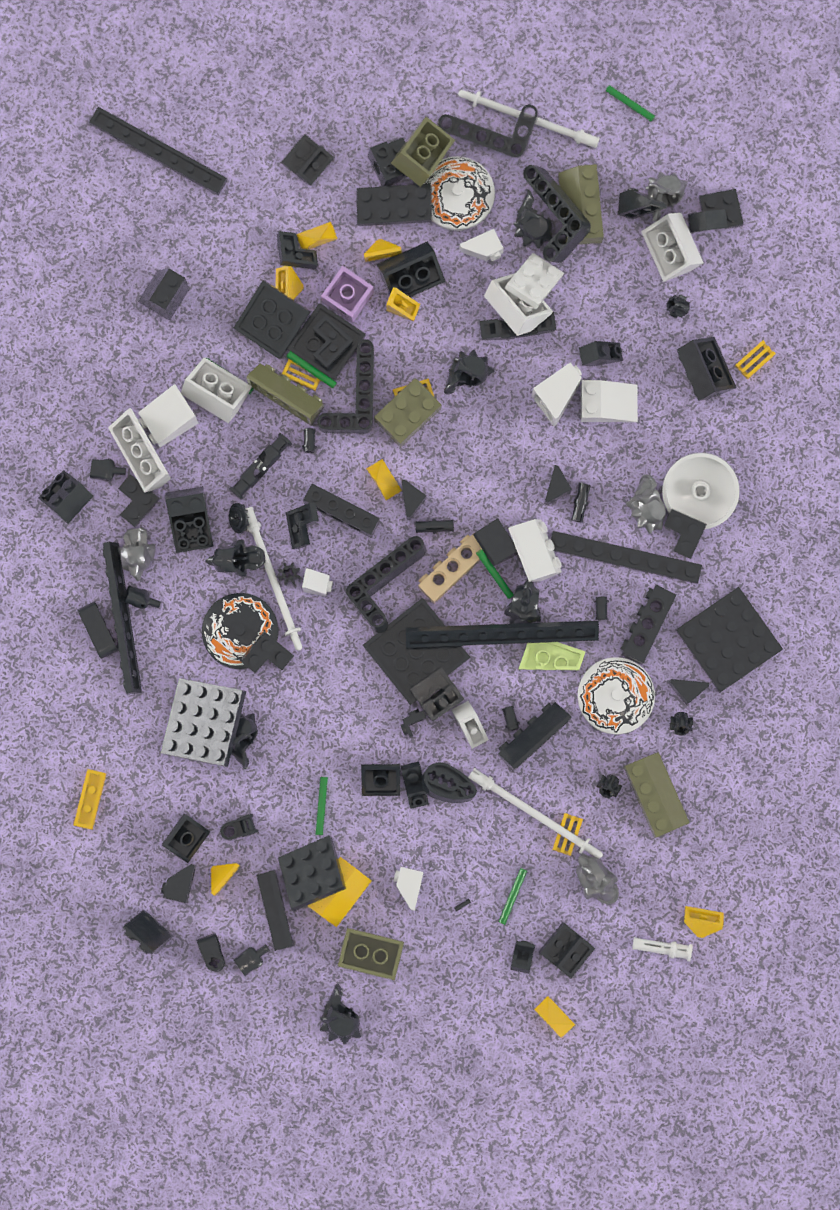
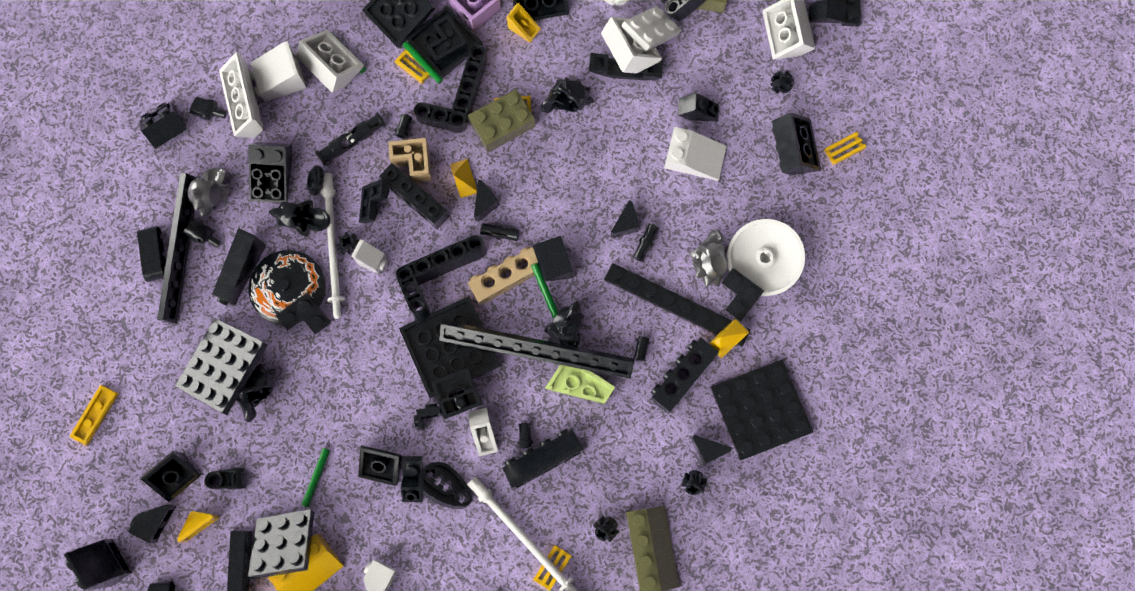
camera: 15 degrees right, 5 degrees down
(140, 503) = (231, 145): black plate -> none
(188, 624) = (238, 267): none -> black slope
(285, 394) = (391, 77): olive slope -> none
(332, 468) = (412, 154): none -> tan brick
(535, 550) = (589, 276): white slope -> none
(557, 391) = (648, 132): white slope -> none
(616, 695) = (635, 438): dish -> none
(683, 578) = (729, 337): none -> yellow slope

